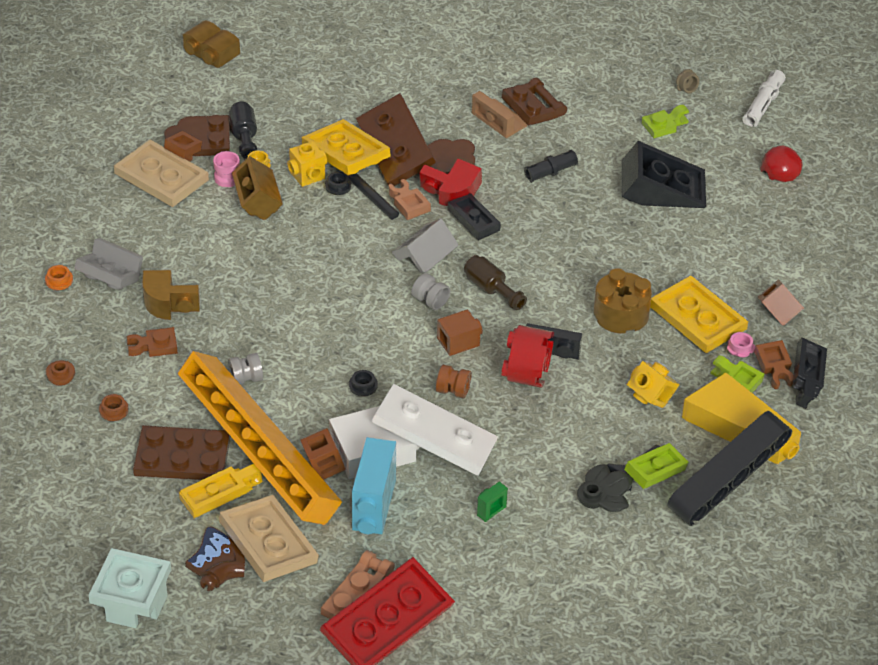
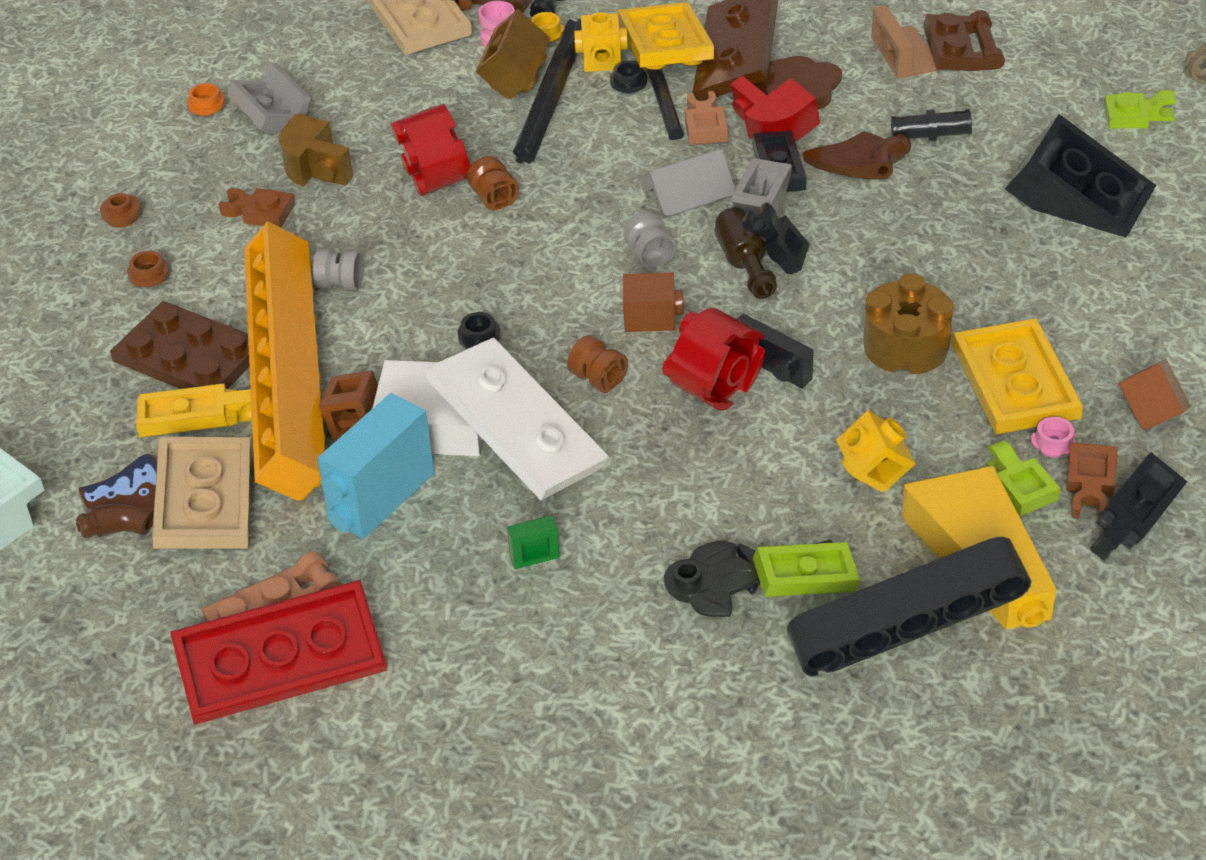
camera: 30 degrees right, 0 degrees up
(254, 270) = (431, 149): none -> red brick
(292, 207) = (547, 95): none -> black axle
(302, 281) = (492, 183): none -> dark orange wheel
(482, 238) = (762, 183): none -> light grey slope
(514, 269) = (783, 240): none -> black plate
(519, 198) = (860, 156): none -> reddish brown arm

